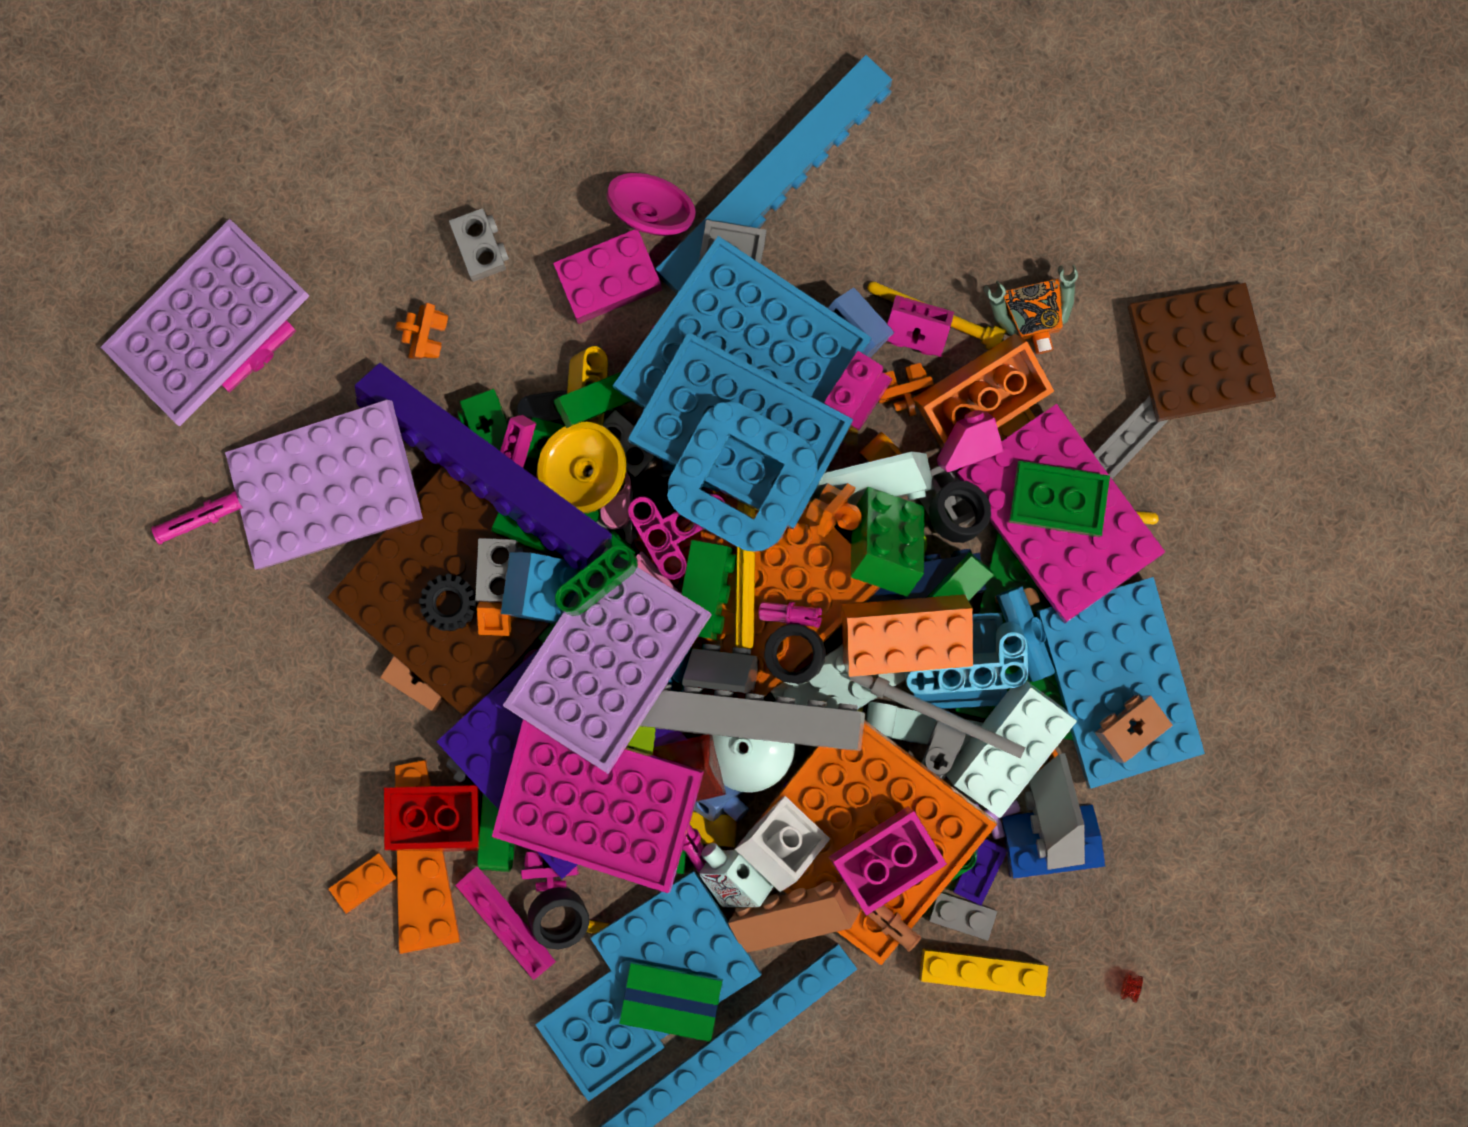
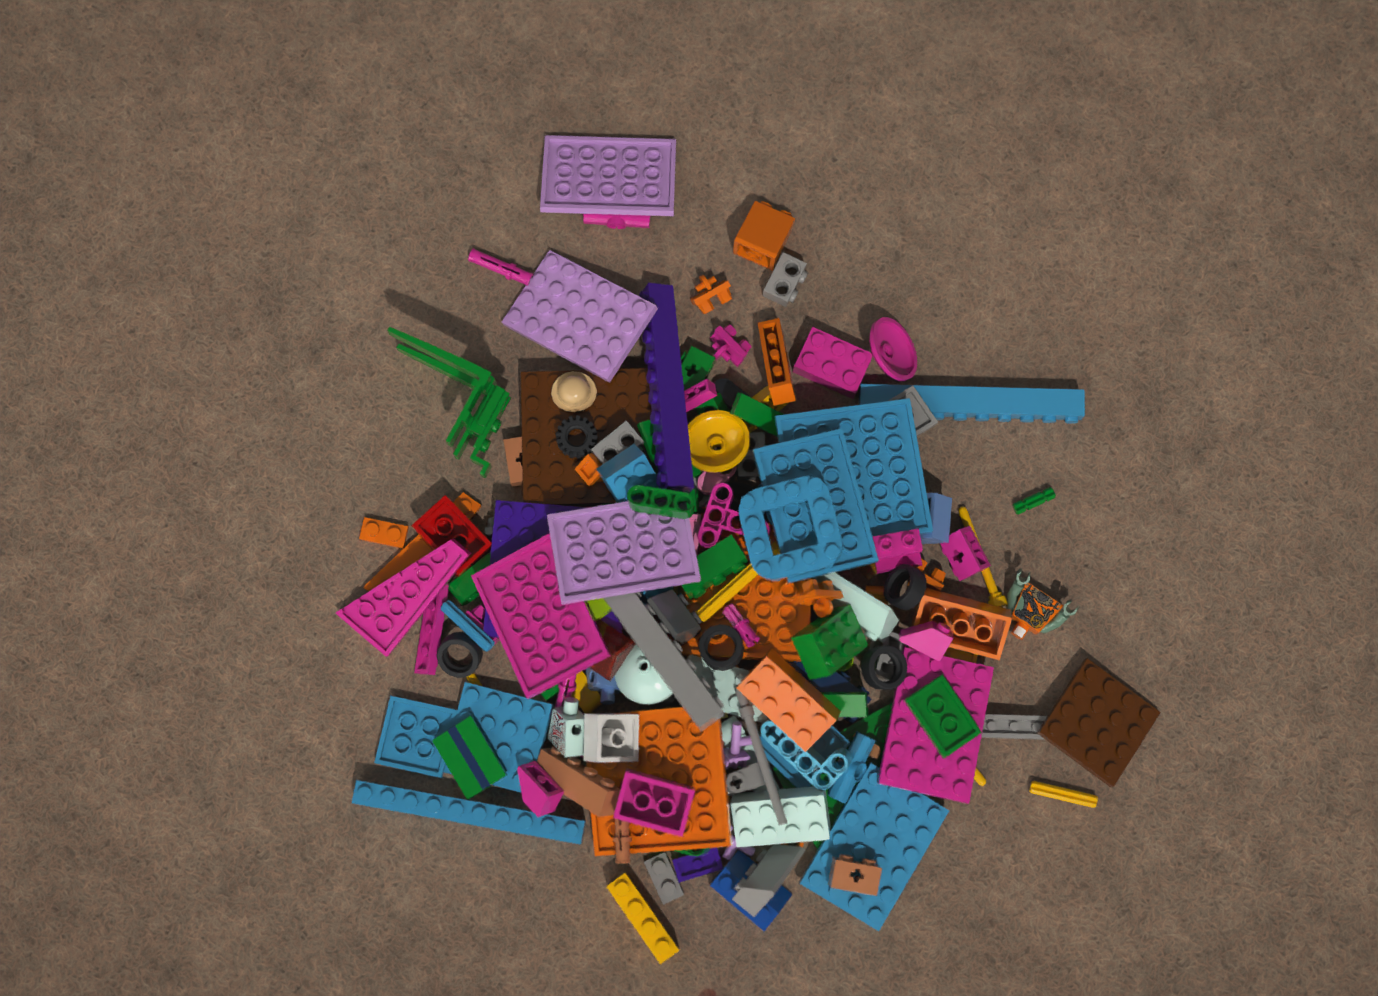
camera: 45 degrees right, 5 degrees down
(337, 662) = (488, 415): none -> green piece
(398, 562) = (574, 391): none -> tan hat
(412, 222) = (763, 234): none -> orange slope
(449, 936) = (395, 605): none -> dark pink wing
(493, 366) = (728, 347): none -> dark pink hips
(537, 884) = (467, 625): none -> dark azure axle
(556, 332) = (776, 362): none -> orange brick
(766, 961) = (538, 789): none -> dark pink slope
(910, 735) = (736, 755): none -> lavender arm
(912, 408) = (914, 591): none -> black tyre
(928, 208) = (1034, 500): none -> green axle
(1237, 451) = (1063, 794): none -> yellow axle

